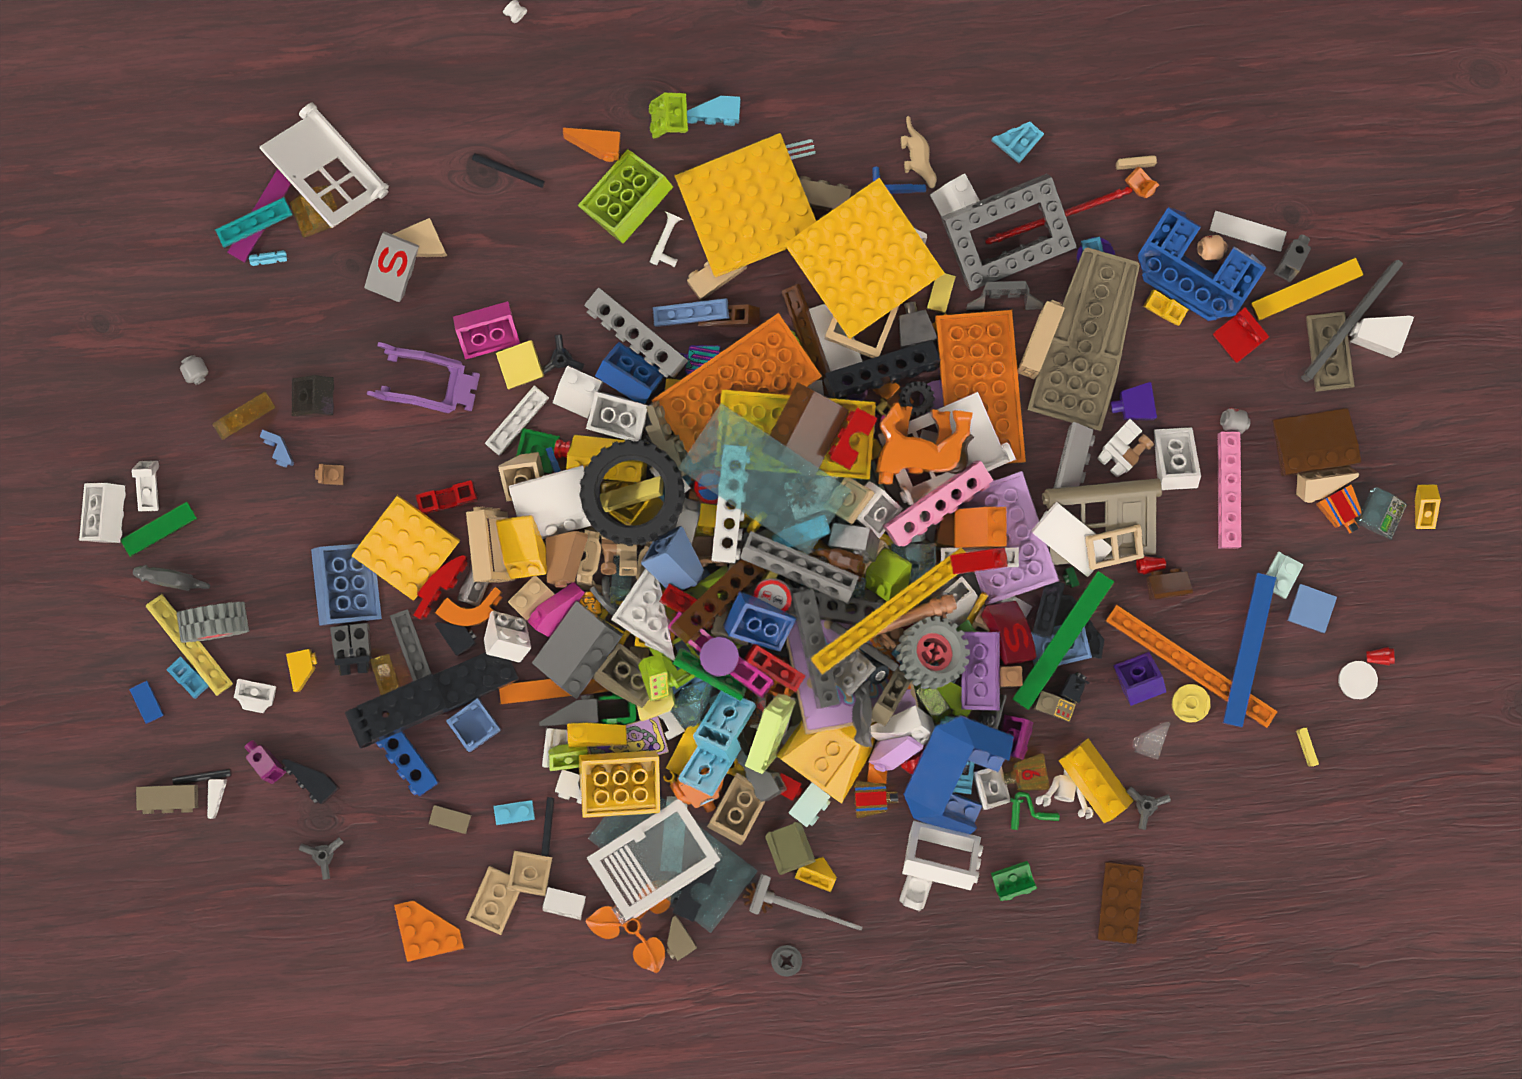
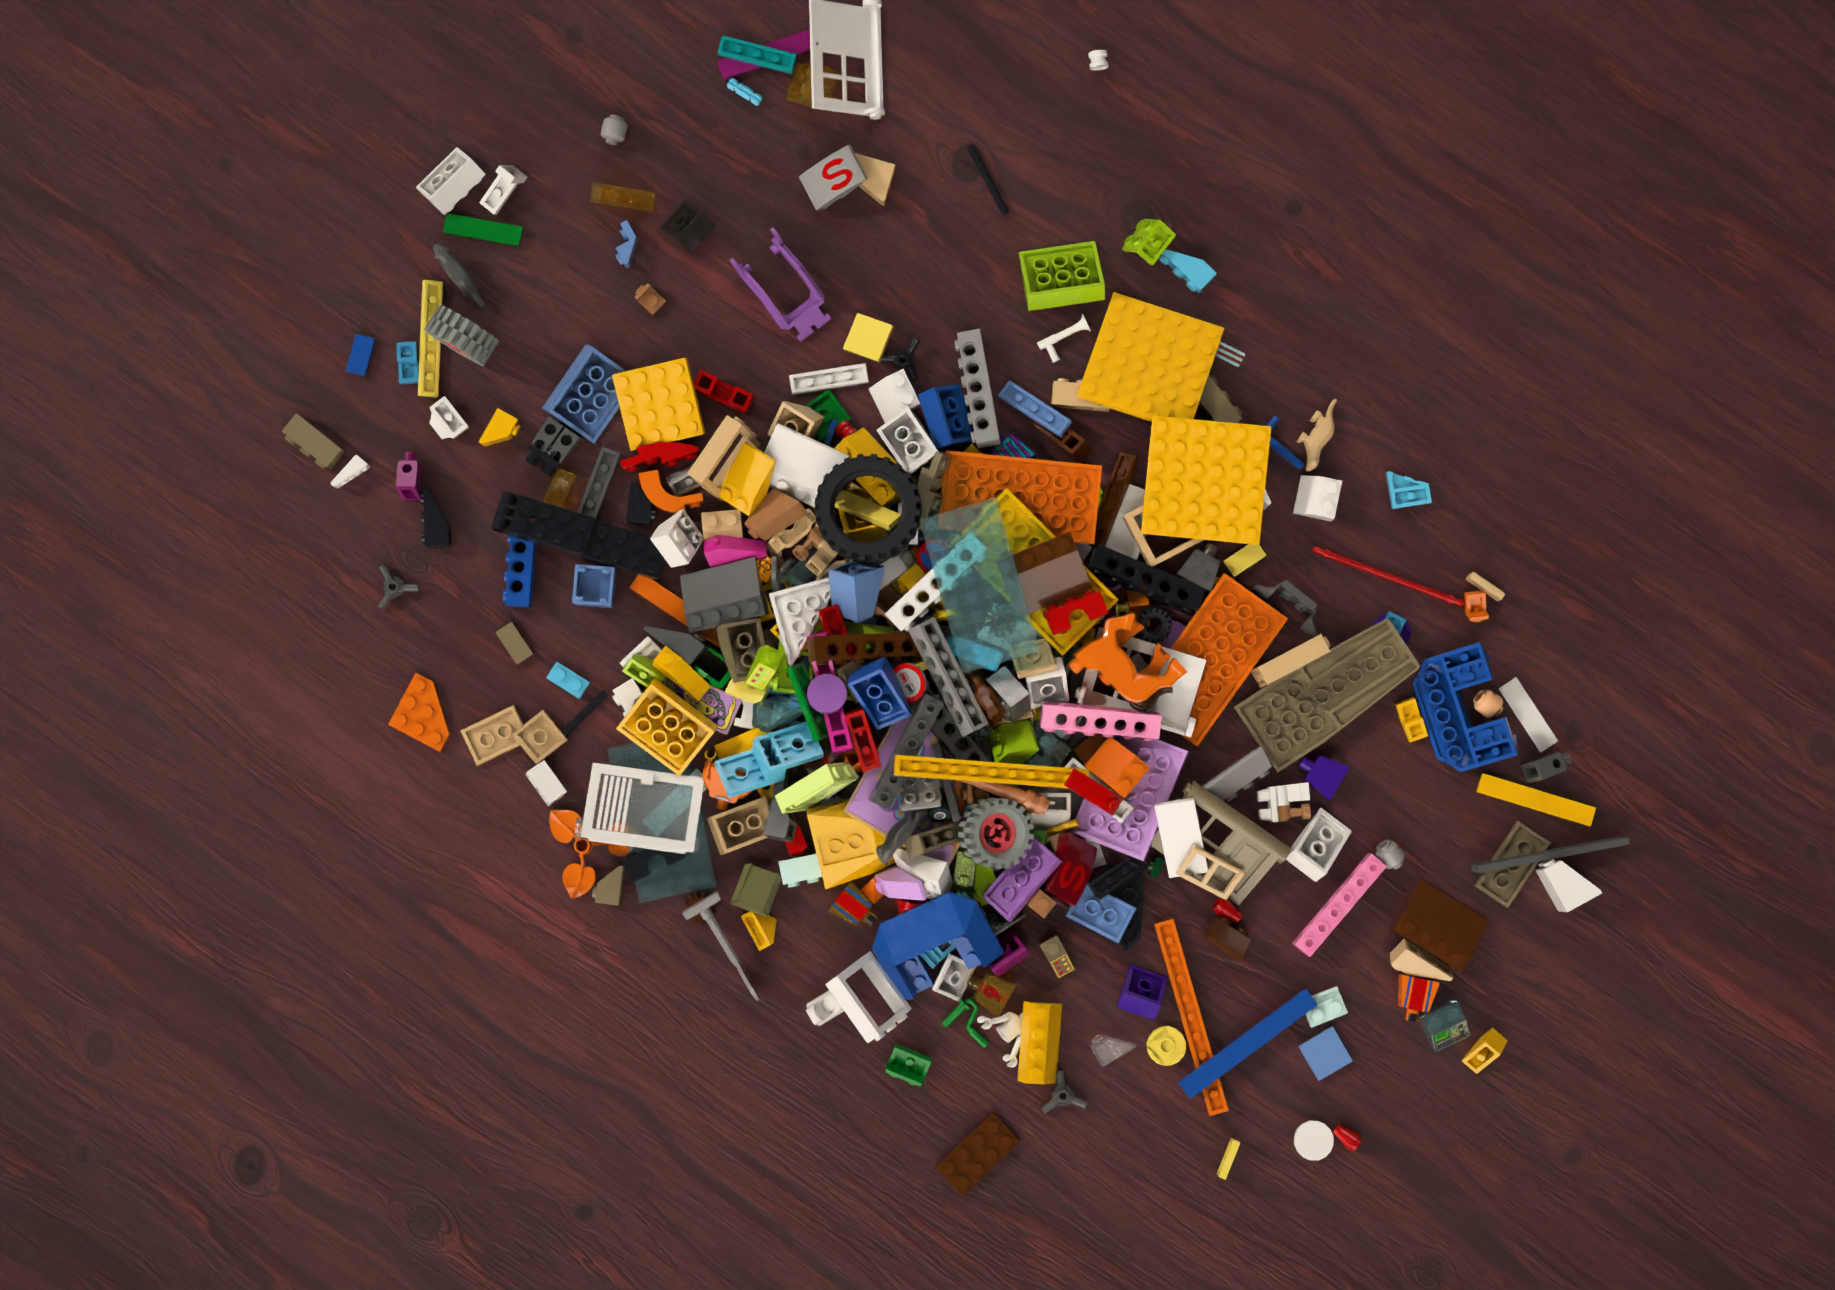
camera: 40 degrees right, 0 degrees up
(201, 776) = (353, 448): black bar -> none
(486, 330) = (864, 289): dark pink slope -> none
(599, 143) = (1076, 217): orange slope -> none
(787, 970) = (673, 982): dark grey gear -> none
(962, 221) = (1306, 515): brick -> none
(1063, 640) = (1107, 910): green tile -> none
(1073, 687) = (1084, 954): black hinge -> none
(1240, 335) = (1452, 791): red bracket -> none

